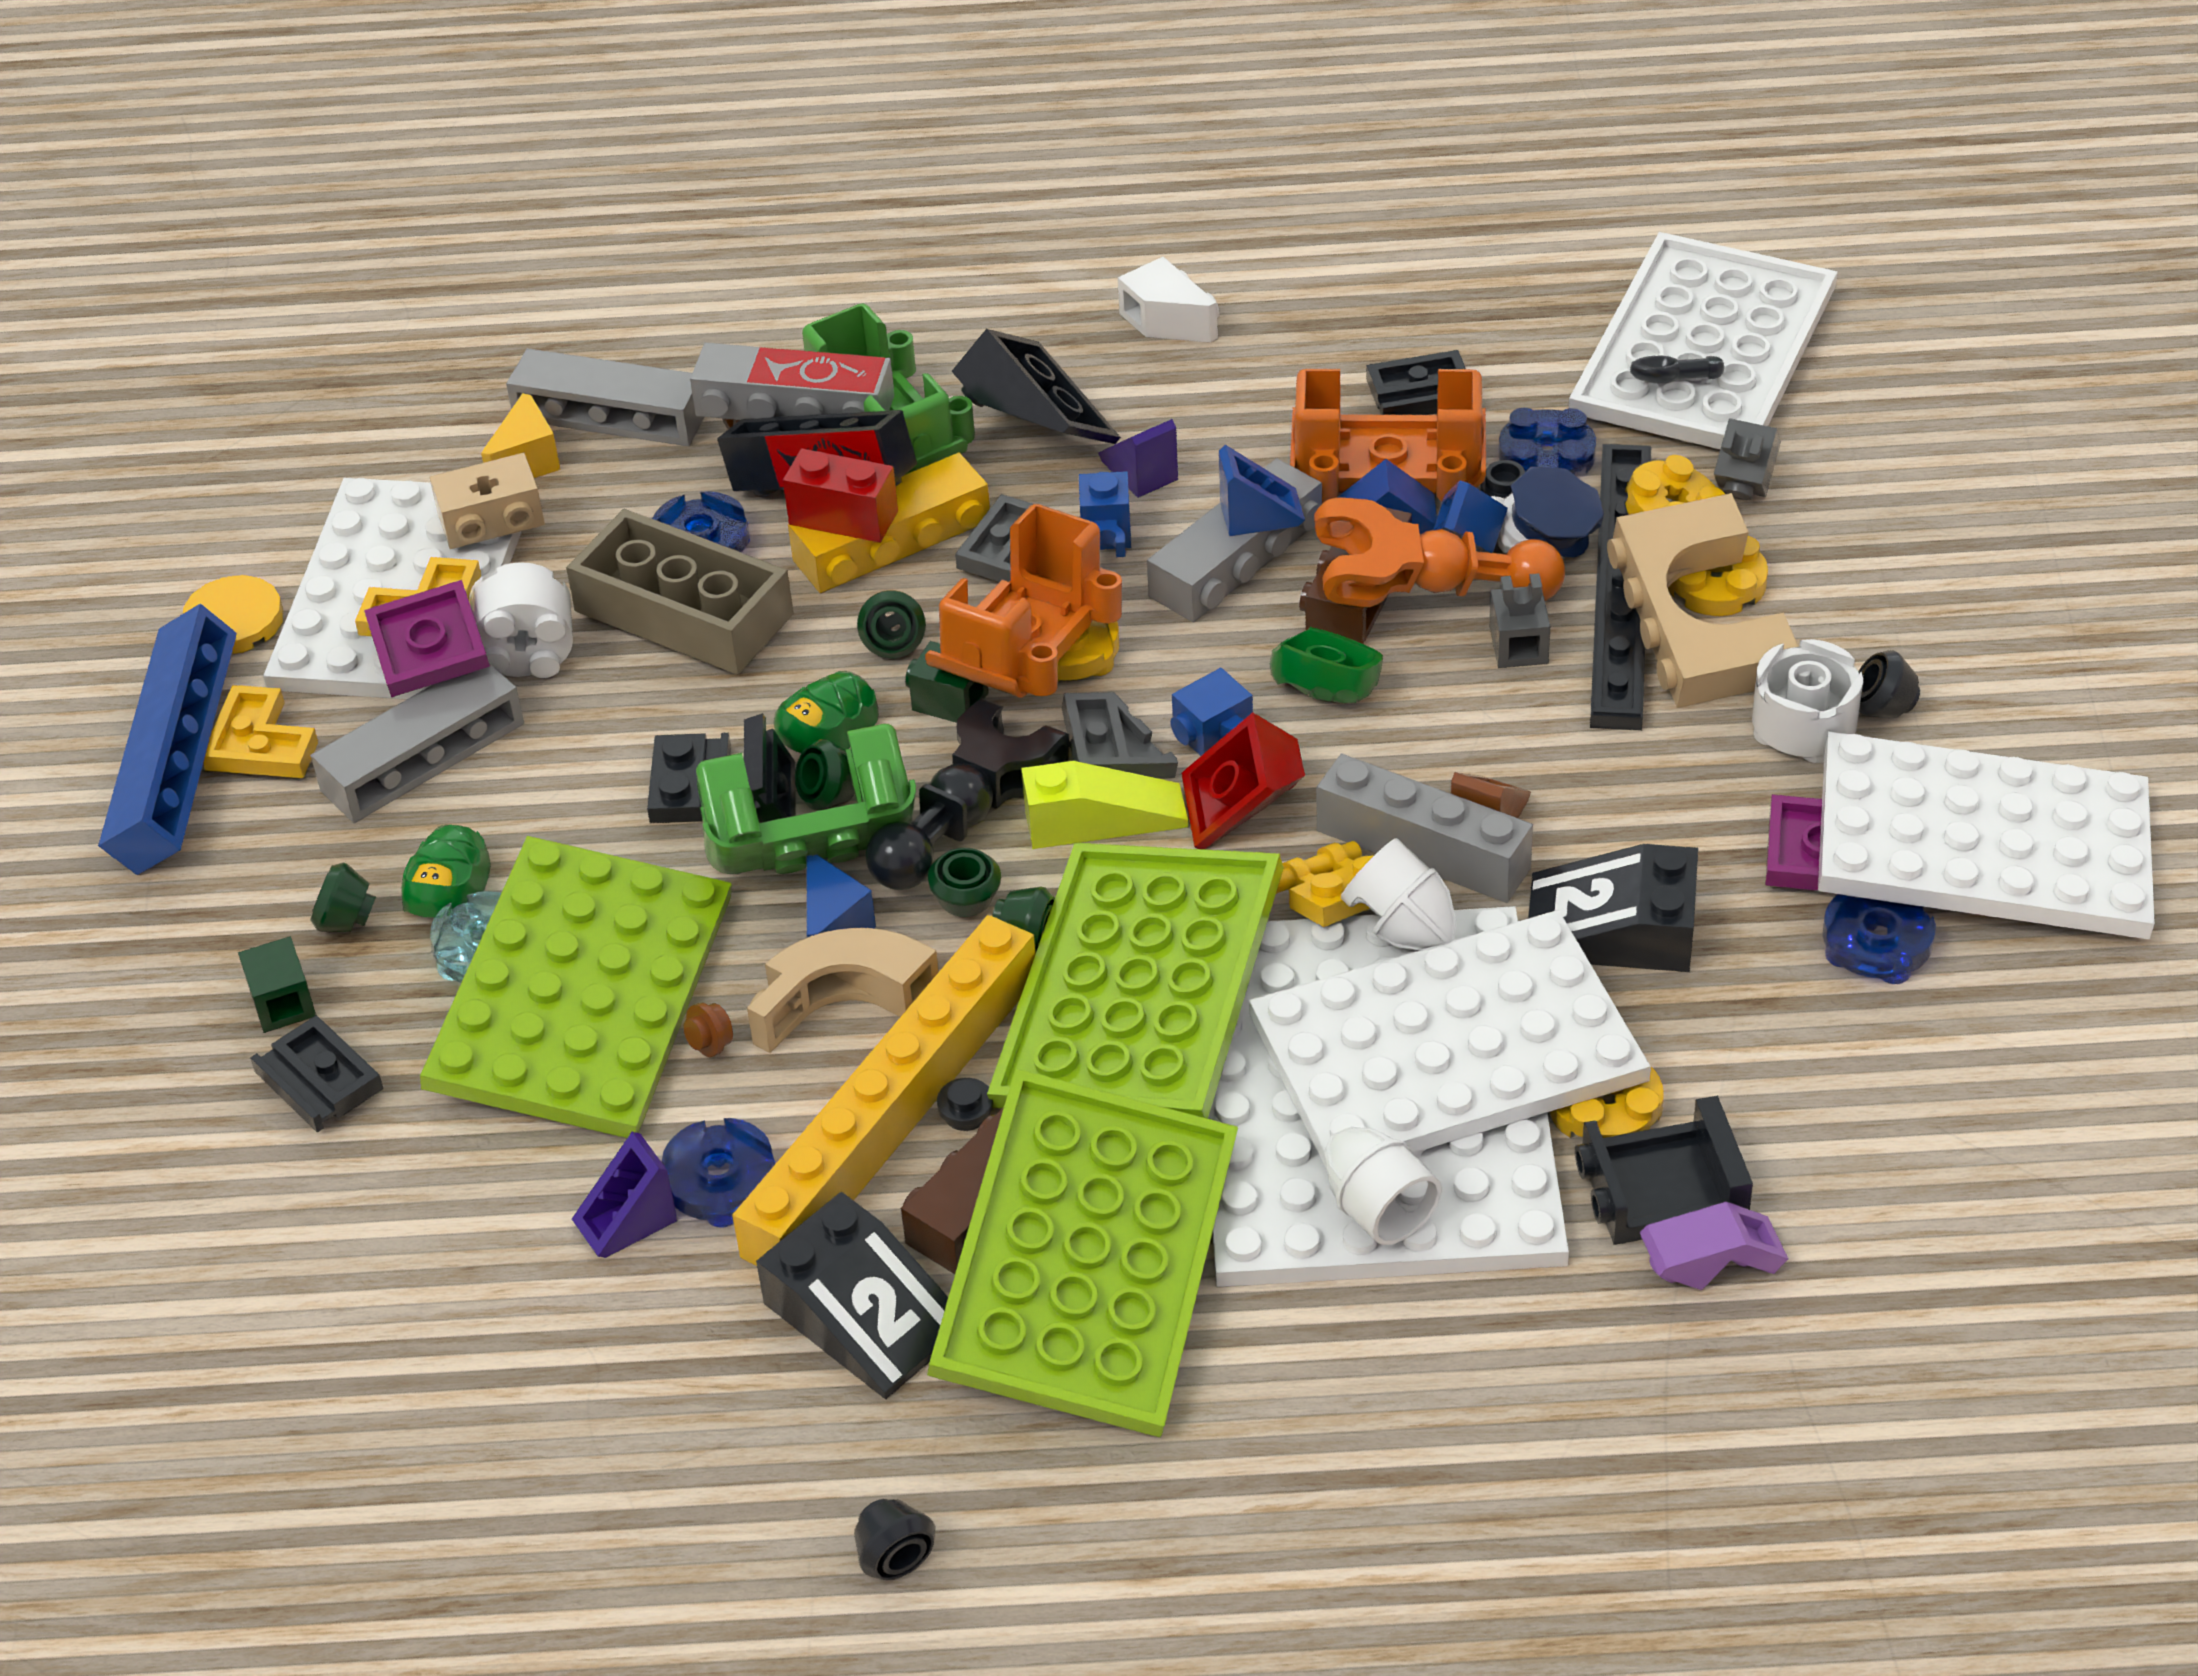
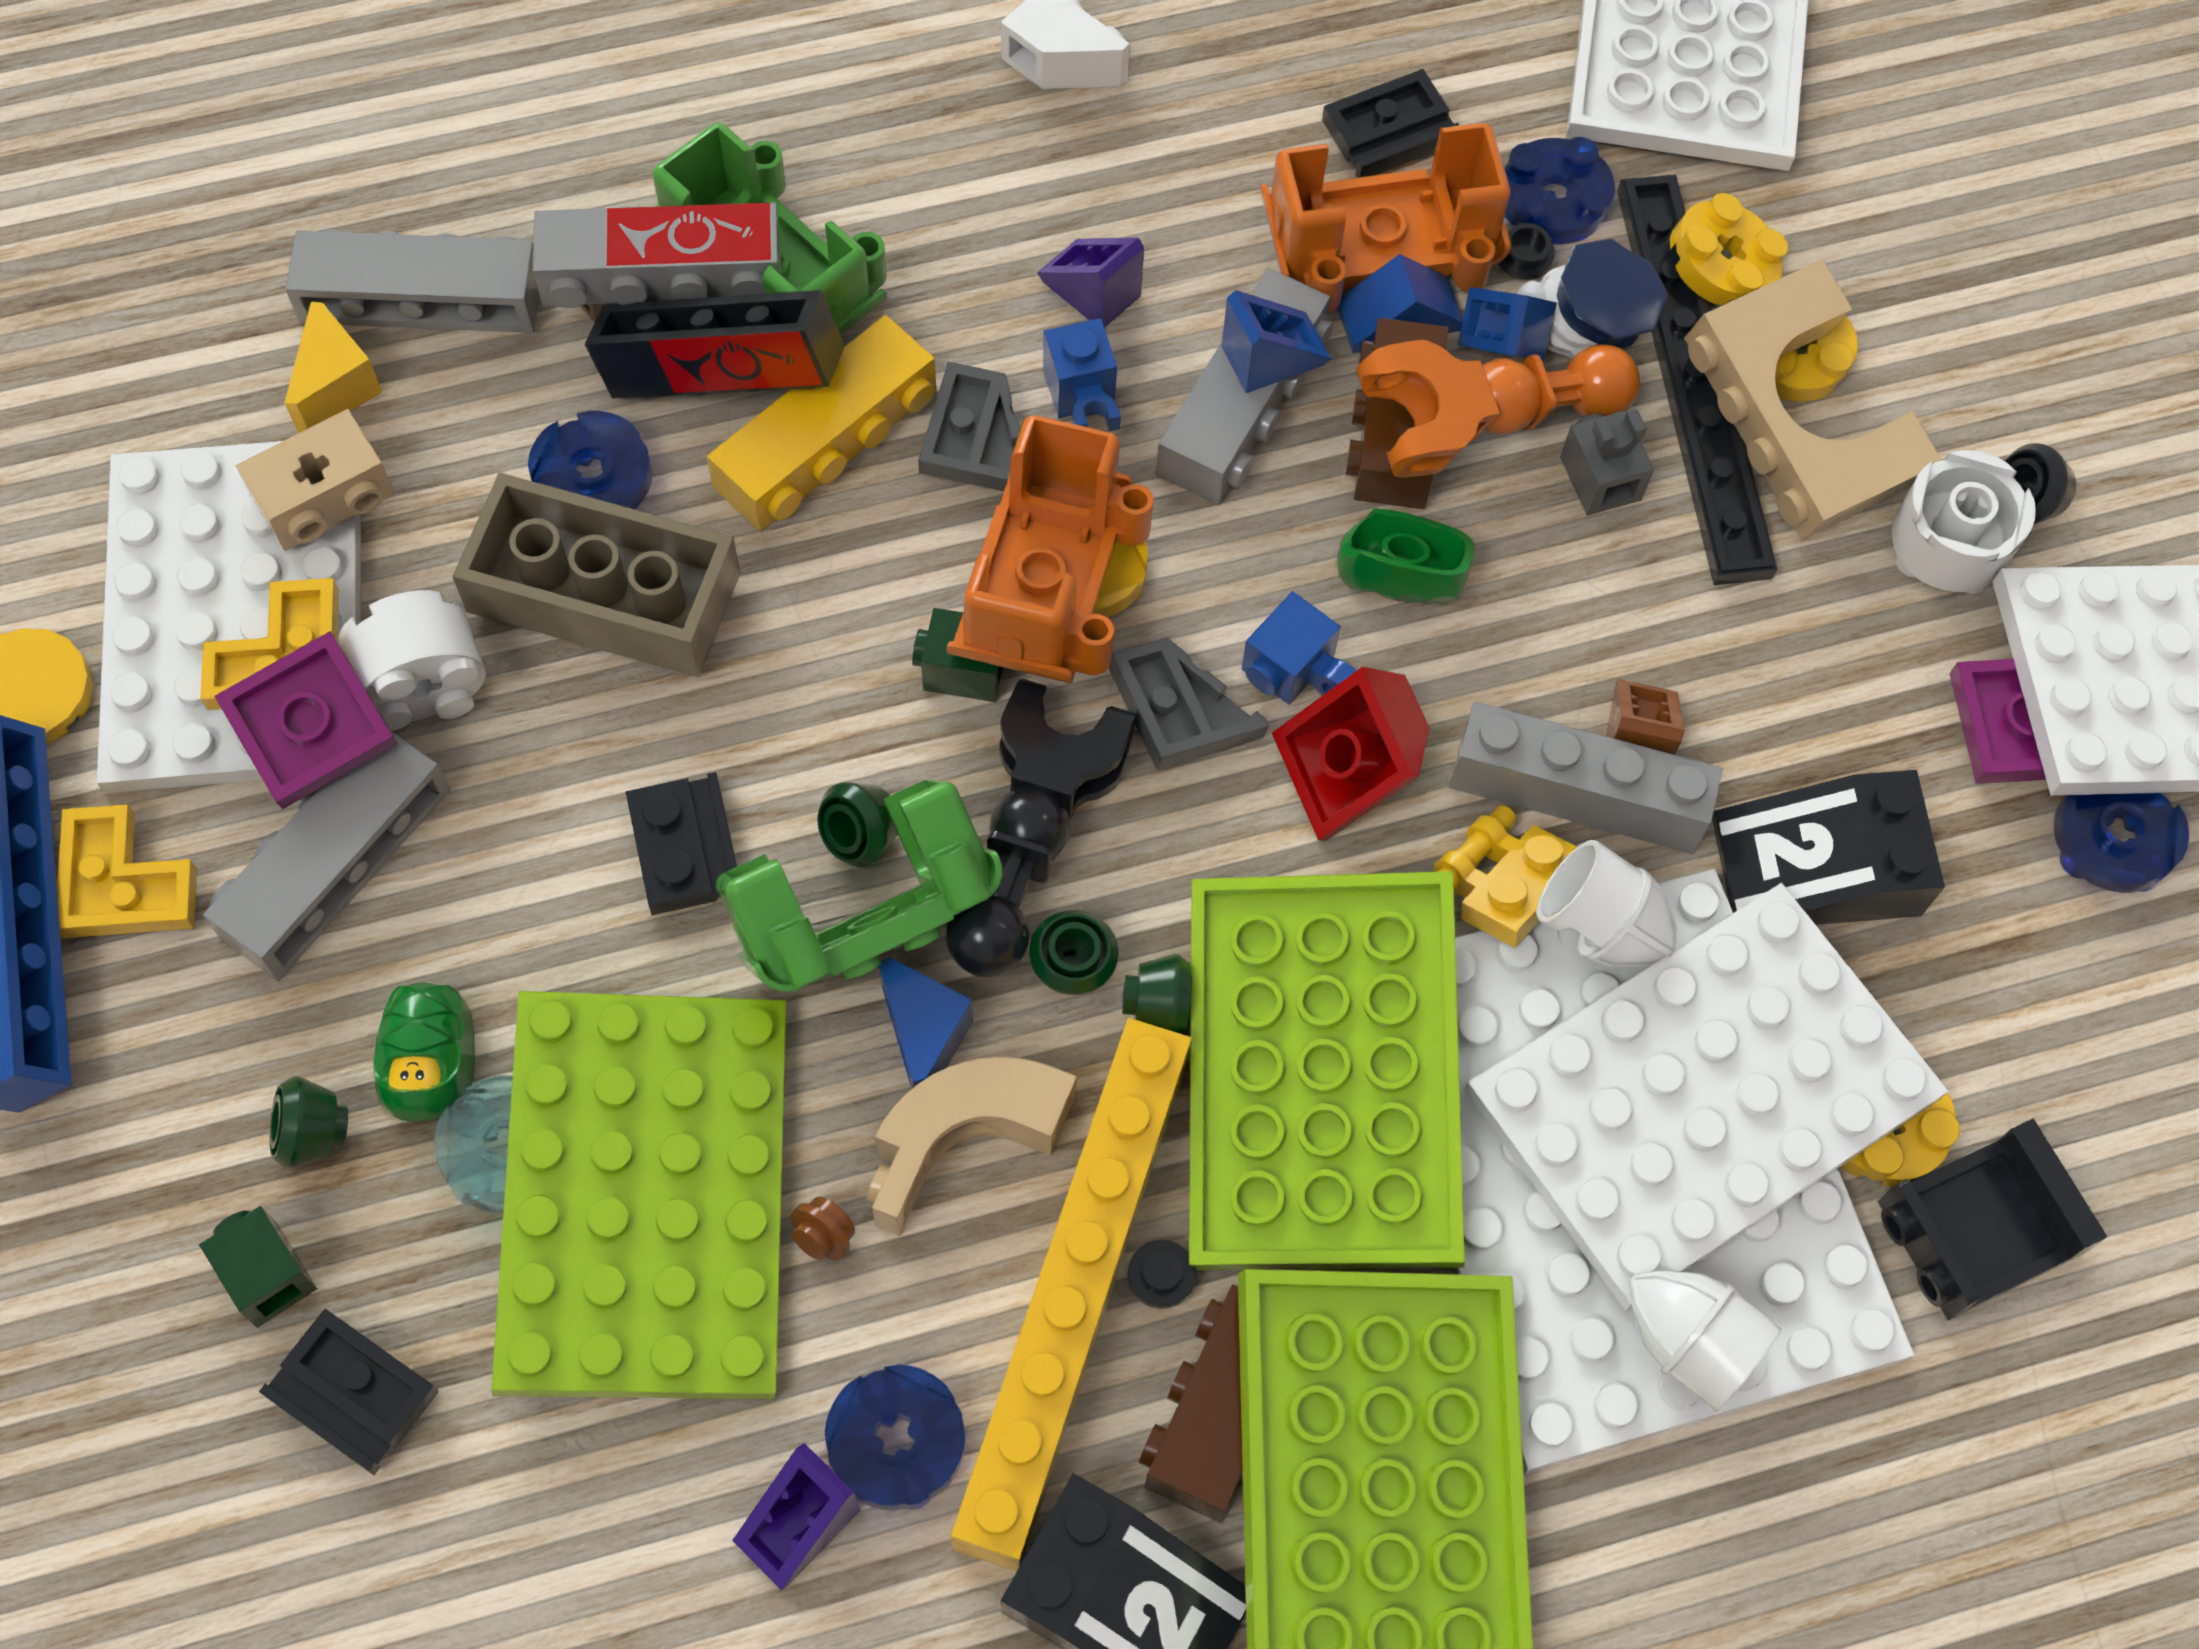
camera: 20 degrees left, 20 degrees up
(769, 771) = (792, 839): black plate -> none
(826, 711) = (828, 726): green piece -> none
(840, 495) = (769, 415): red brick -> none
(876, 628) = (872, 580): dark green cone -> none
(1028, 383) = (942, 206): black slope -> none
(1092, 803) = (1193, 805): neon yellow slope -> none
(1666, 369) = (1672, 69): black piece -> none
(1704, 1241) = (2071, 1317): medium lavender slope -> none
(1747, 459) = (1797, 186): dark grey brick -> none

